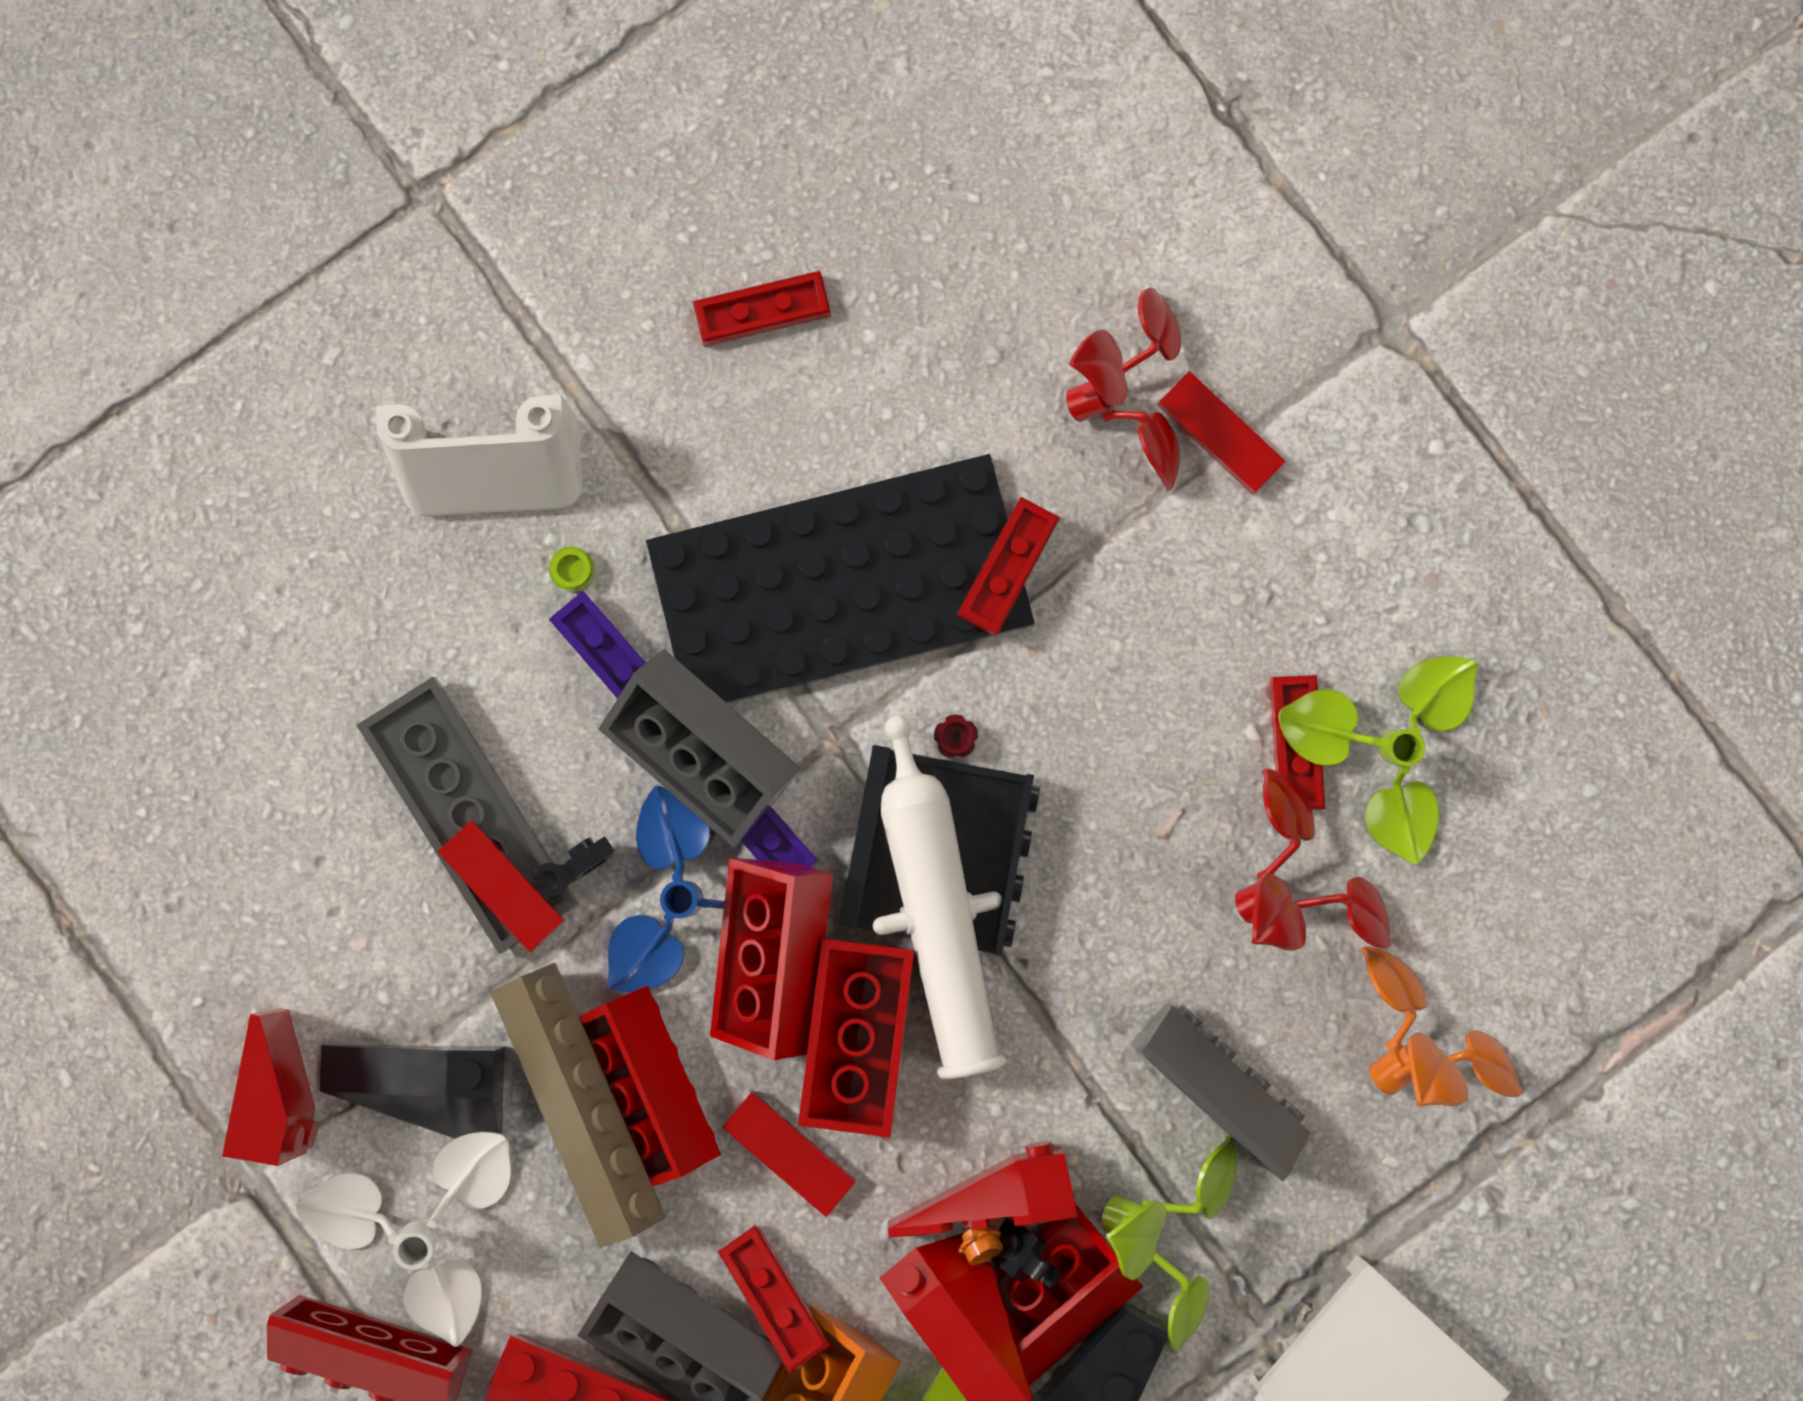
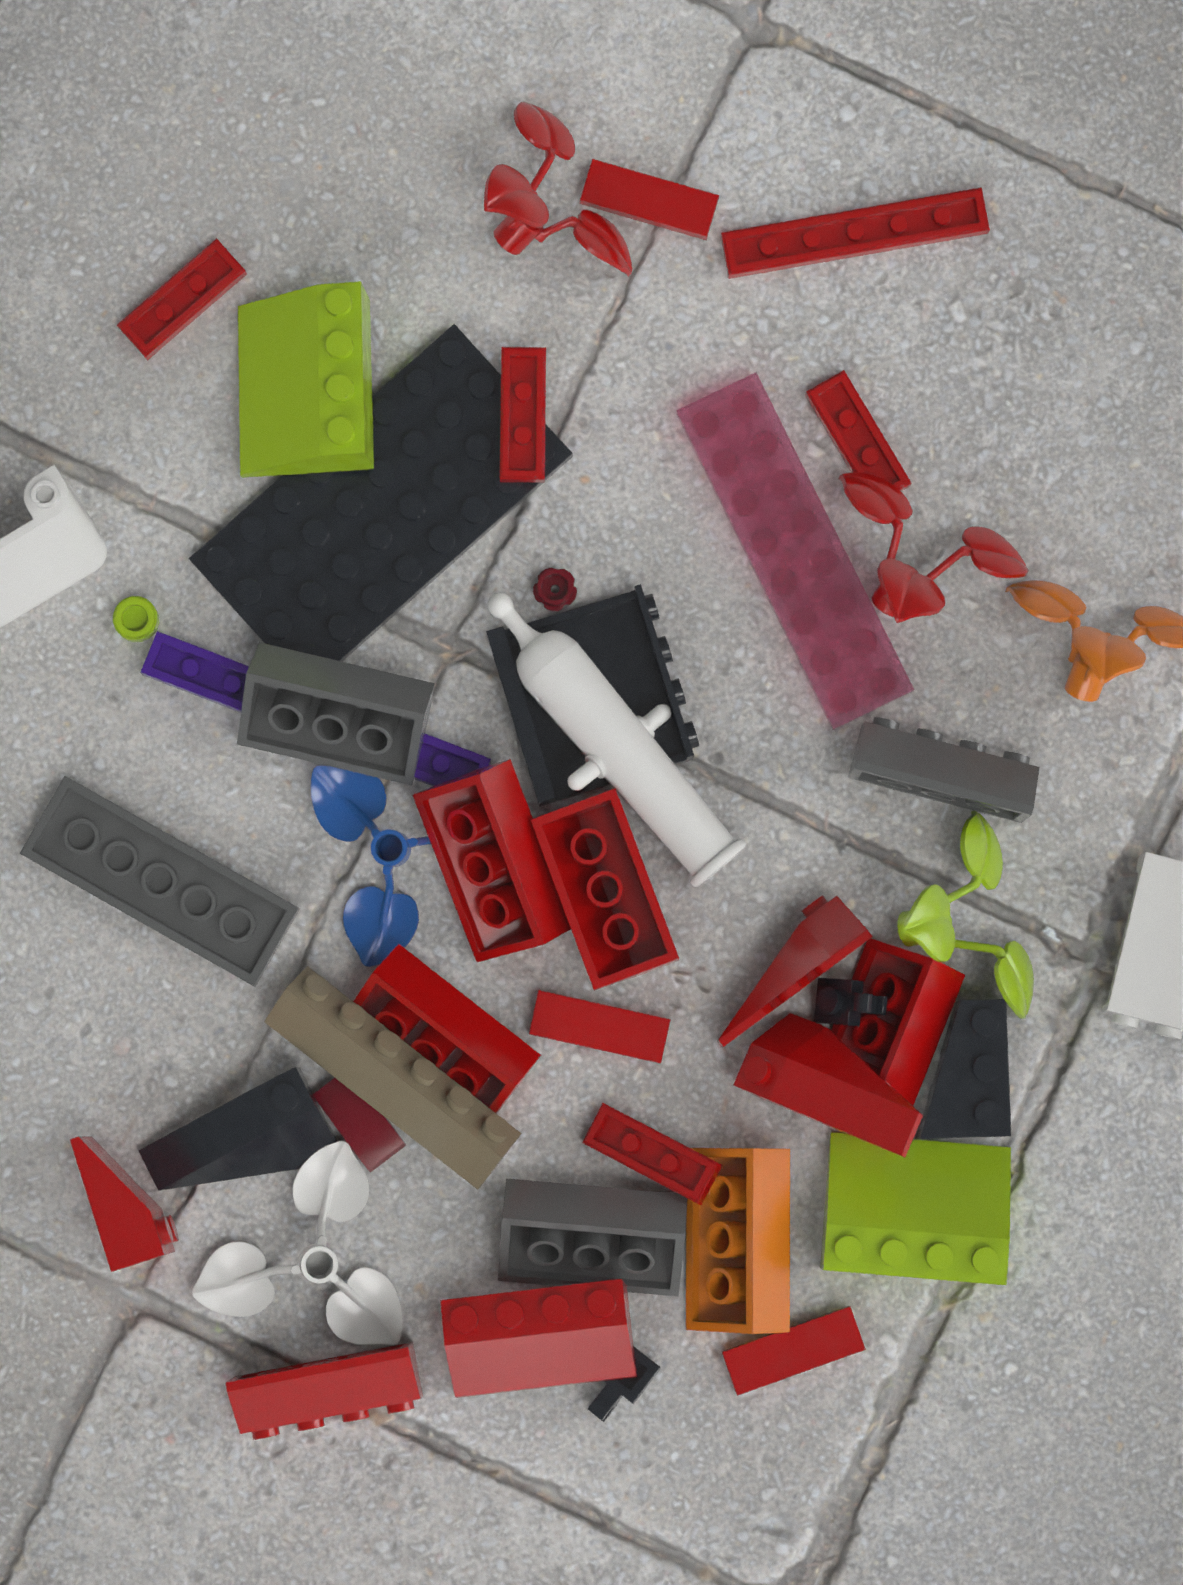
camera: 25 degrees left, 0 degrees up
(501, 886) = (225, 924): red tile -> none
(527, 1134) = (360, 1124): none -> dark red slope
(584, 859) = (284, 864): black plate -> none
(831, 438) = (306, 382): none -> lime slope
(980, 1245) = (805, 1011): orange plate -> none
(1188, 816) = (794, 551): none -> clear pink plate
(1323, 723) = (871, 412): lime plant -> none
(1390, 557) = (855, 233): none -> red tile

